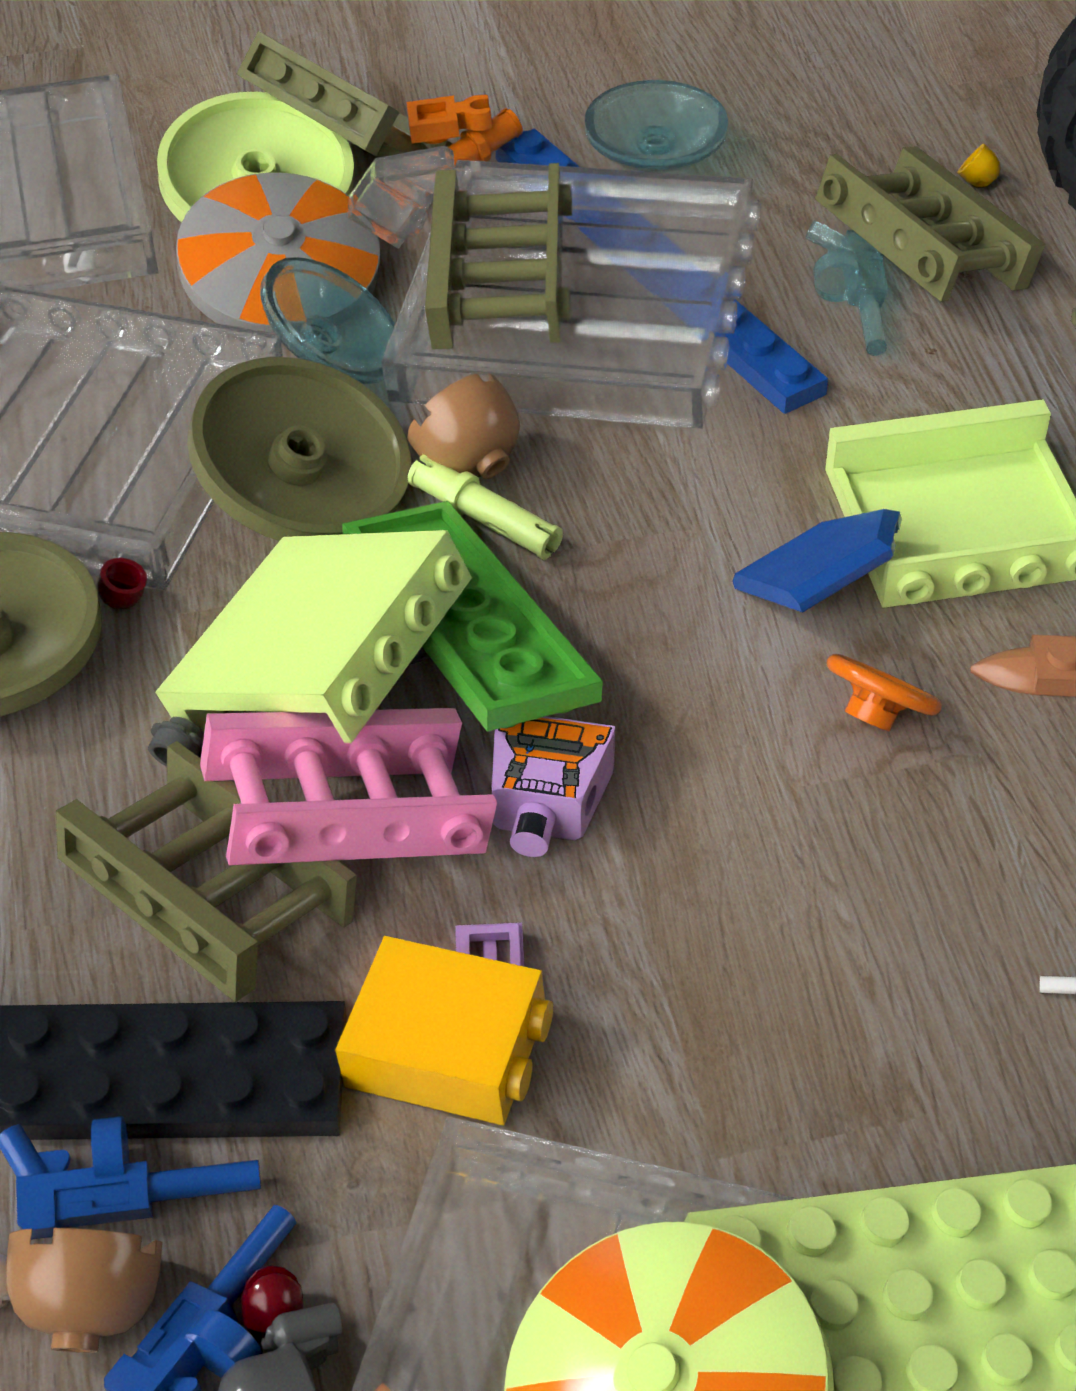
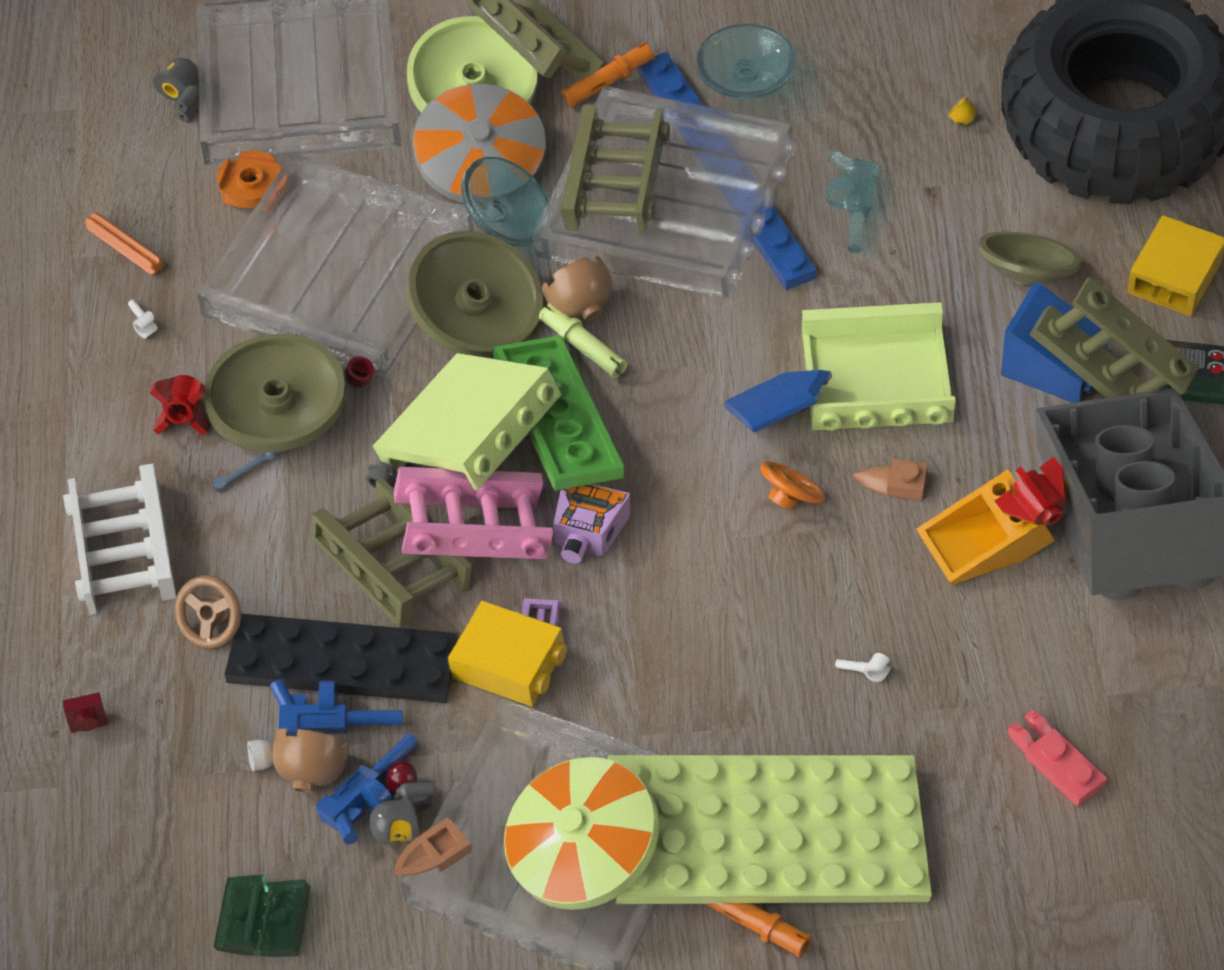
camera: 10 degrees right, 5 degrees up
(397, 193) = (559, 107): clear slope -> none
(442, 117) = (599, 47): orange plate -> none
(951, 209) = (925, 139): olive fence -> none

